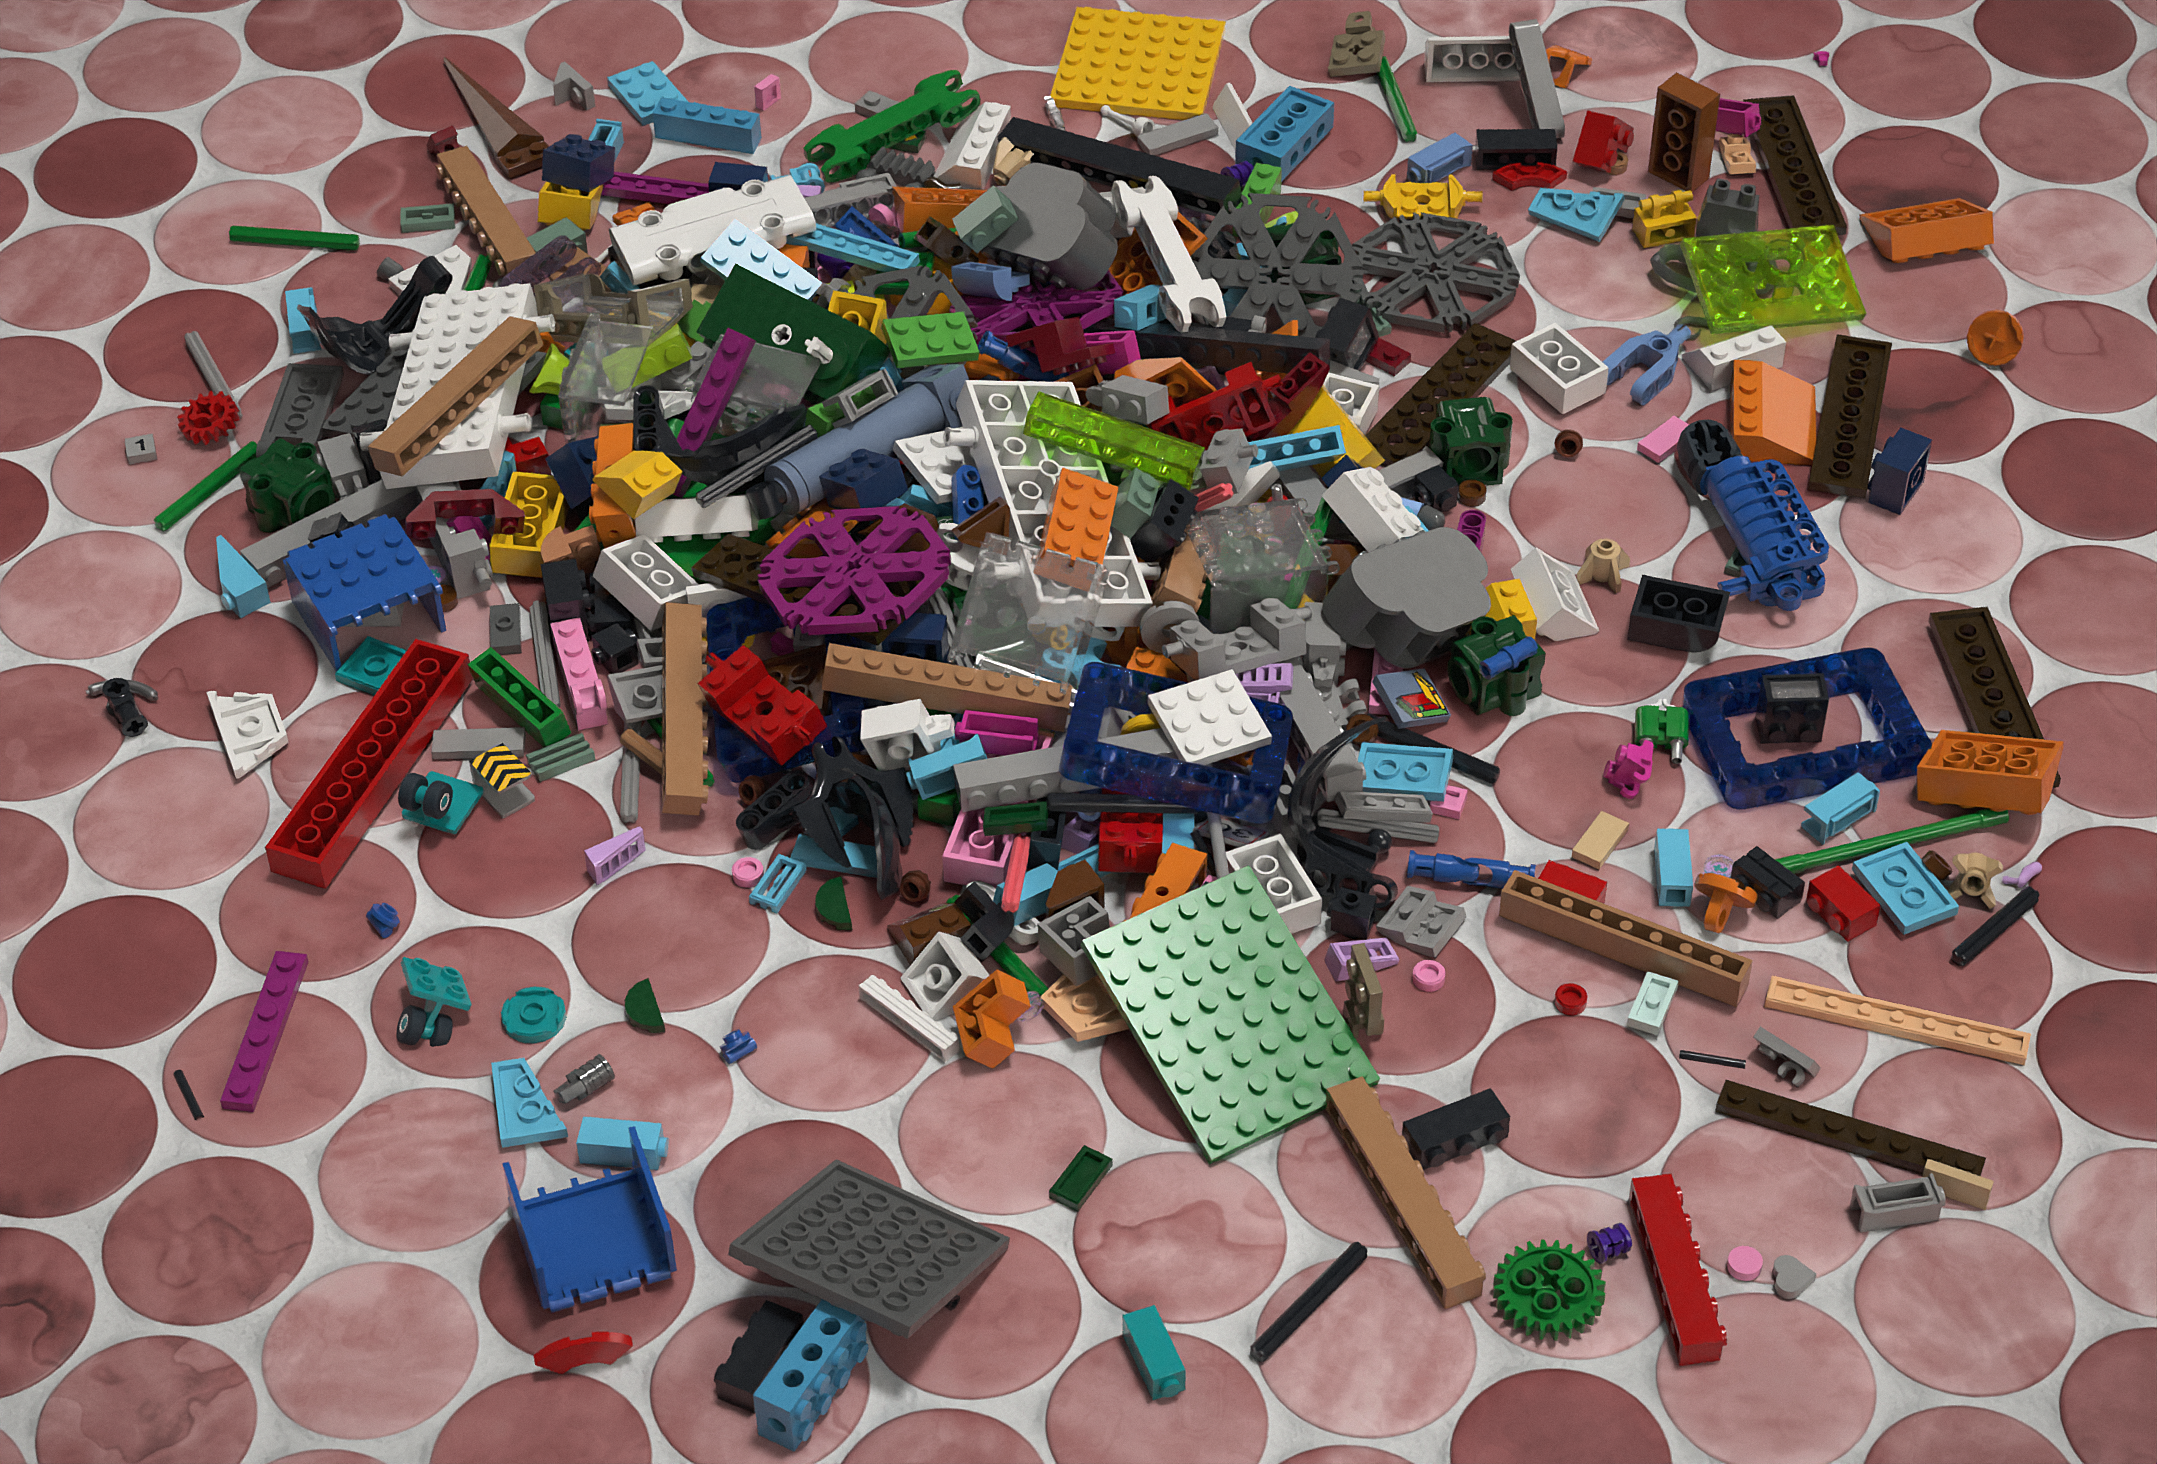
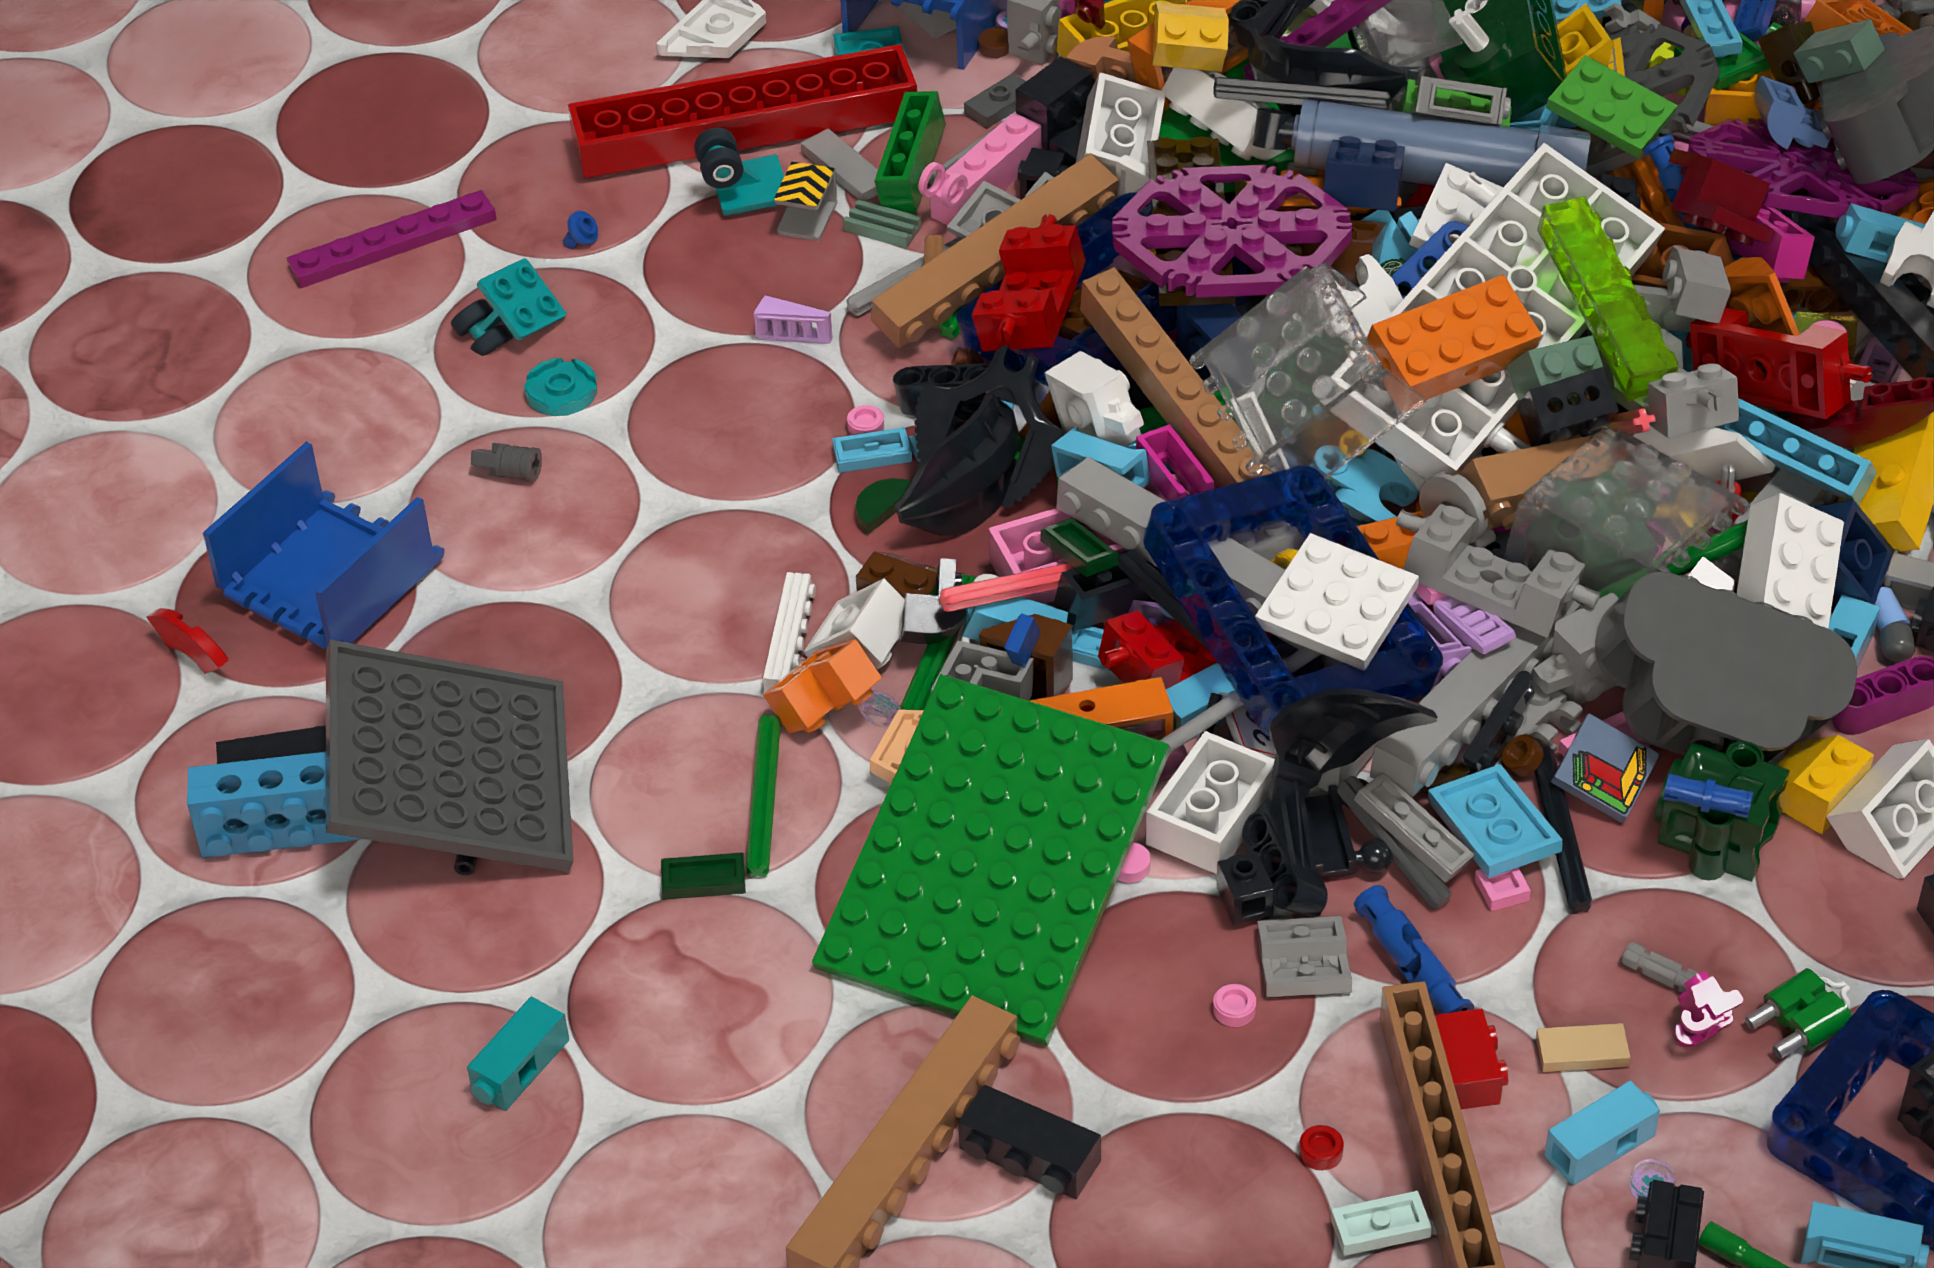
camera: 55 degrees right, 0 degrees up
(188, 1094) = (286, 239): black piece -> none
(522, 1107) = (443, 439): medium azure wing -> none
(609, 1144) = (454, 526): medium azure brick -> none
(642, 1008) = (634, 449): dark green tile -> none
(737, 1045) = (643, 537): blue plate -> none
(915, 886) = (958, 541): copper plate -> none
(991, 519) = (1385, 284): reddish brown slope -> none
(1041, 1108) = (763, 796): none -> green axle
(1086, 886) = (1022, 640): none -> blue tile
(1308, 1301) = (695, 1146): black axle -> none
(1341, 951) = (1199, 916): lavender slope -> none
(1342, 713) = (1503, 721): none -> black hinge
(1365, 994) = (1109, 948): dark tan plate -> none
(1575, 770) = (1656, 966): none -> light grey axle
(1723, 895) = (1591, 1200): orange tile -> none

